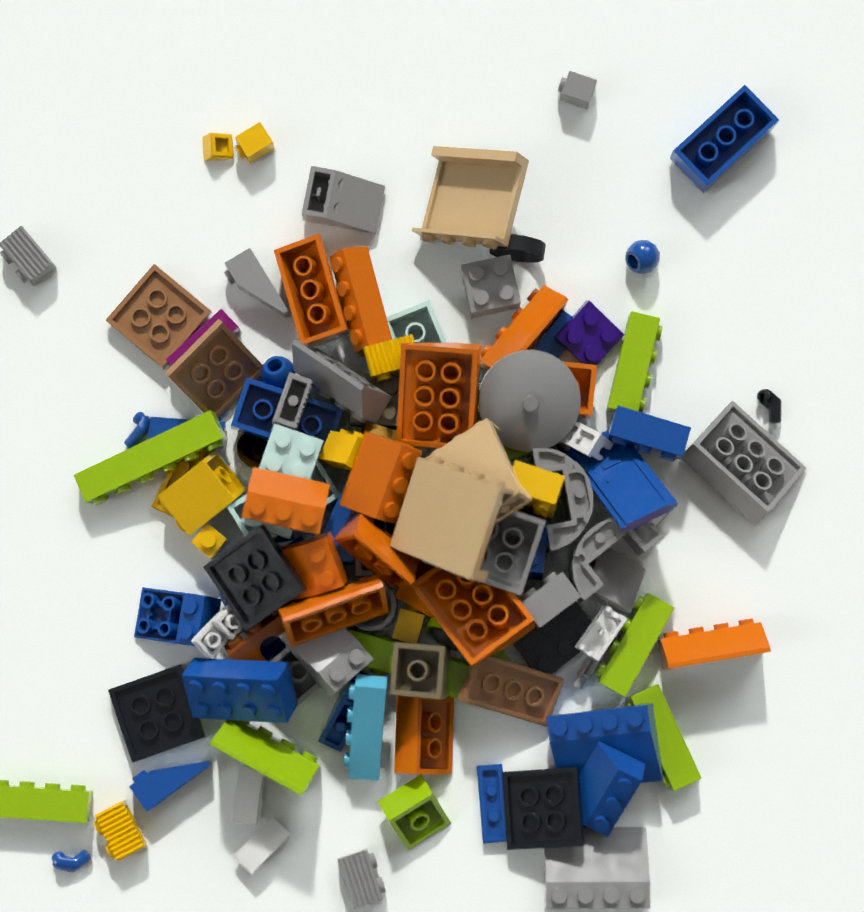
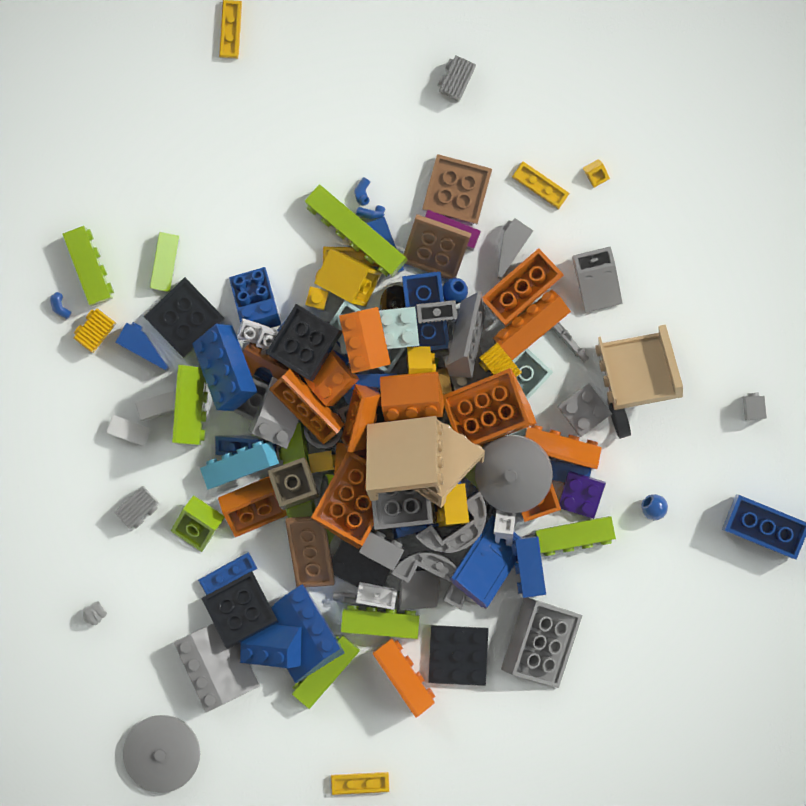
camera: 70 degrees right, 5 degrees up
(78, 706) = (164, 262): none -> lime slope
(106, 431) = (360, 192): none -> blue arm
(201, 217) = (540, 185): none -> yellow tile
(253, 143) = (609, 197): yellow brick -> none
(395, 269) = (565, 336): none -> light grey piece
(714, 569) = (458, 655): none -> black plate
(772, 403) = (593, 643): black arm -> none
(817, 758) = (360, 783): none -> yellow tile

